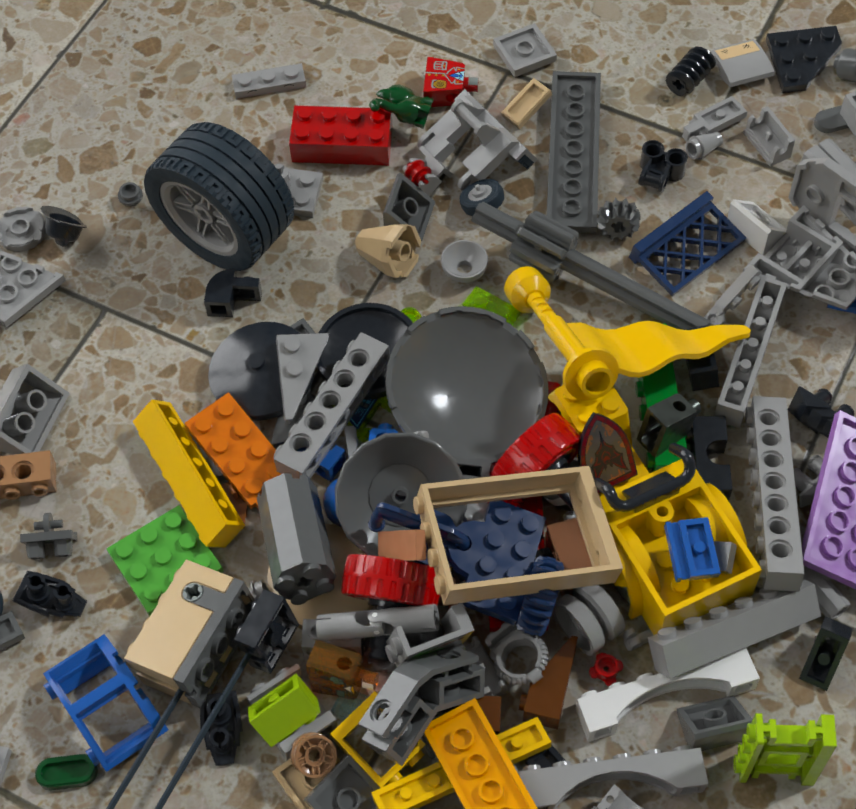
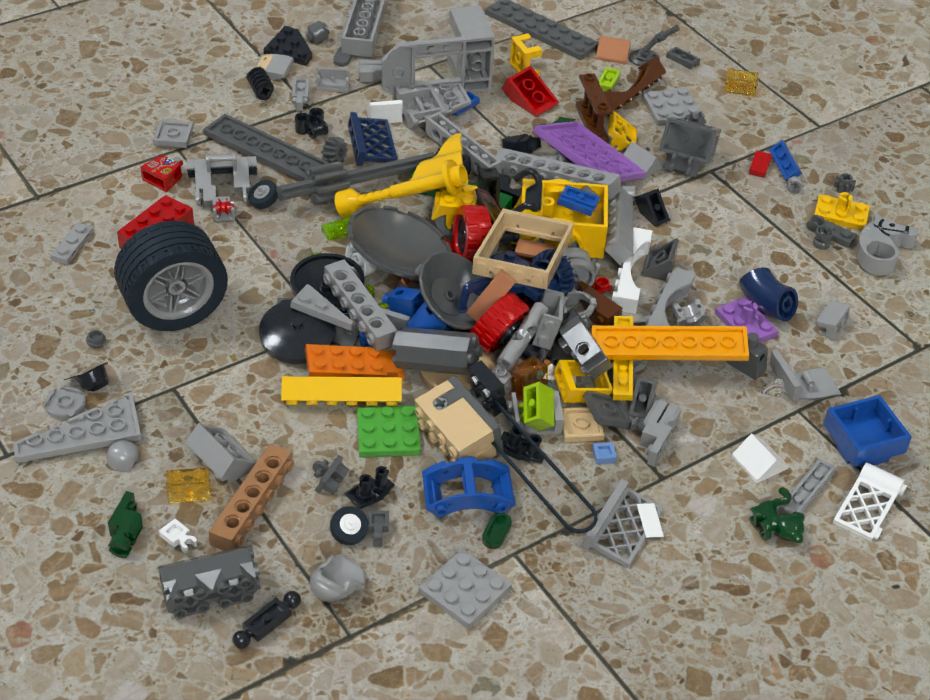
camera: 65 degrees left, 15 degrees down
(226, 288) = (224, 324): black brick -> none
(324, 759) = (574, 407): medium nougat wheel -> none
(390, 248) = (261, 243): tan cone -> none
(404, 104) = (171, 188): dark green animal -> none
(408, 205) = (239, 228): dark grey slope -> none
(464, 253) = (301, 216): light grey piece -> none
(526, 103) = (213, 144): tan tile -> none
(701, 145) = (312, 102): light grey cone -> none
(731, 297) = (425, 136): light grey hinge -> none
(786, 749) = (703, 230): lime fence -> none

